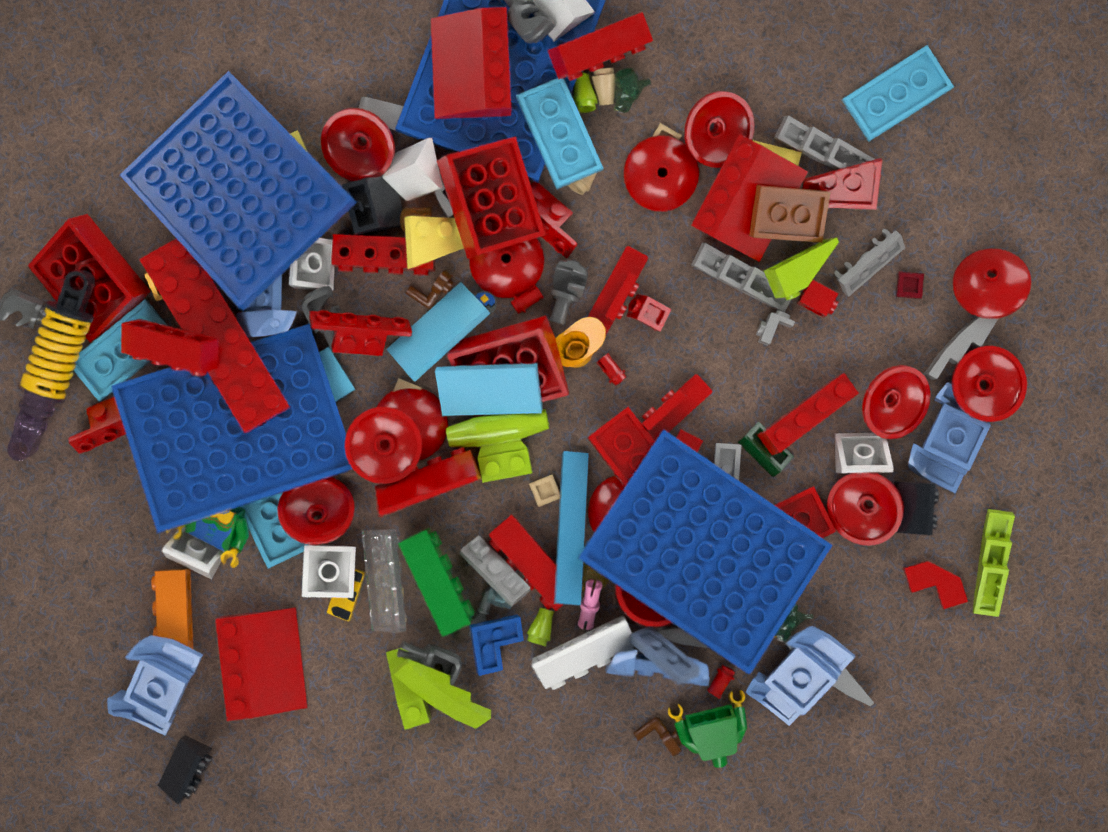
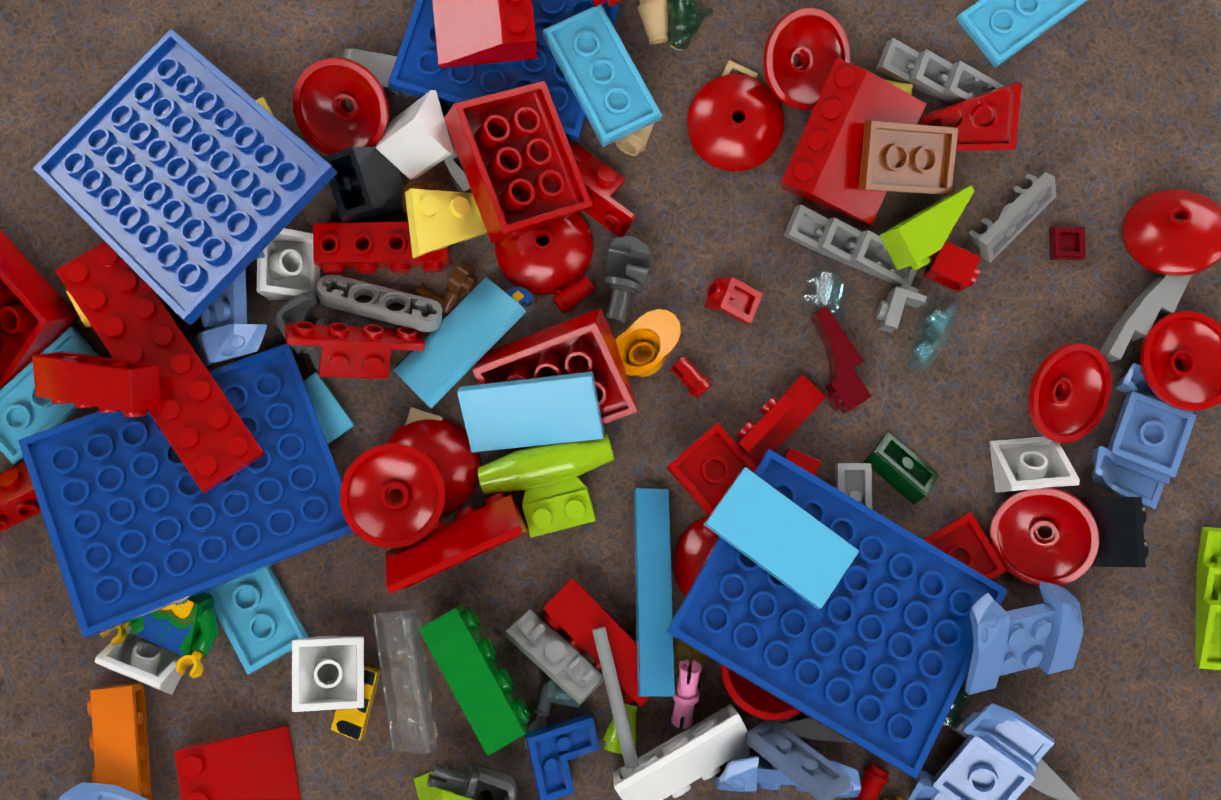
camera: 10 degrees left, 5 degrees down
(323, 498) = (317, 573): red dish -> none
(380, 294) = (348, 289): none -> light grey beam
(537, 602) = (615, 697): none -> light grey bar
(545, 490) = (614, 542): tan tile -> none
(584, 95) = (630, 29): lime cone -> none
(618, 287) = (692, 268): red bracket -> none
(666, 495) = (781, 538): none -> medium azure tile
(721, 311) = (828, 291): none -> clear light blue tile
(727, 387) = (845, 386): none -> dark red slope
(803, 345) = (938, 331): none -> clear light blue slope
(808, 414) = (955, 417): red brick -> none
(841, 581) = (1024, 637): none -> medium blue piece
(948, 586) = (1159, 632): red tile -> none

